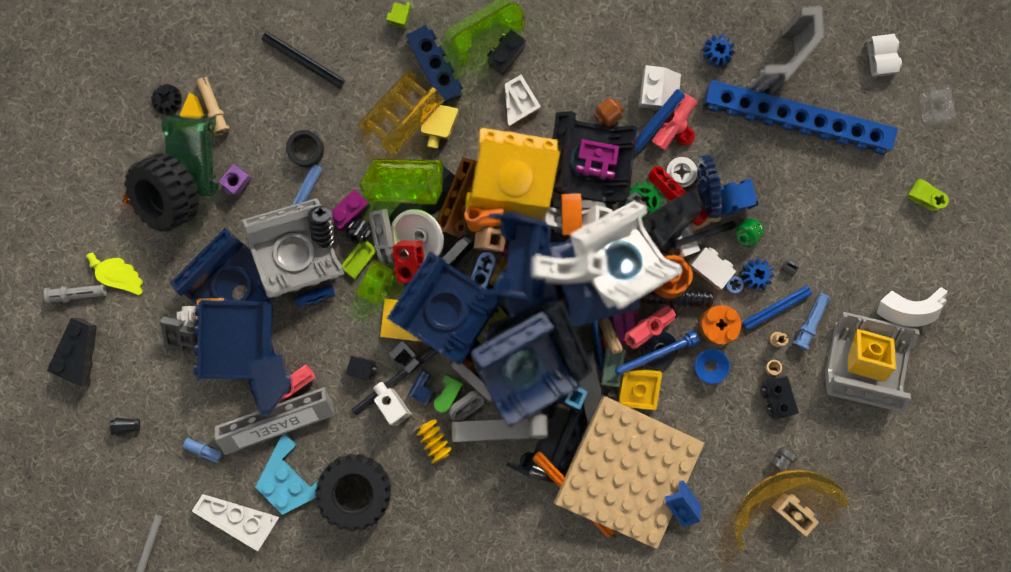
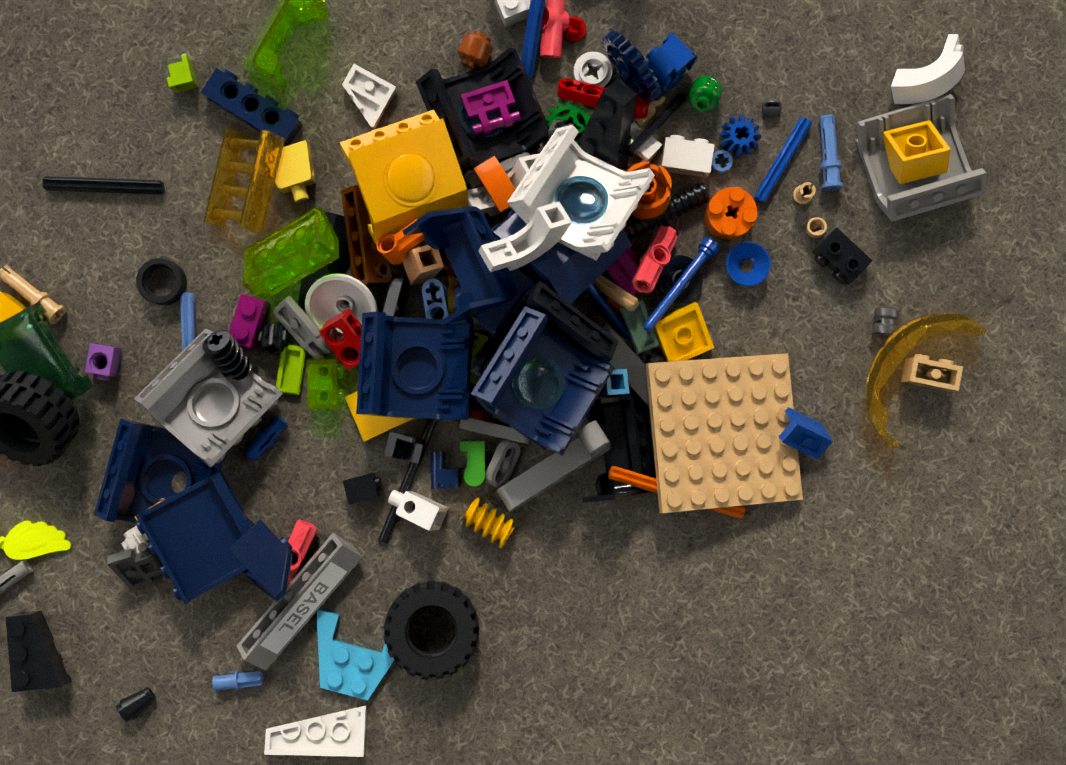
camera: 25 degrees left, 0 degrees up
(506, 52) = (323, 47): black brick -> none

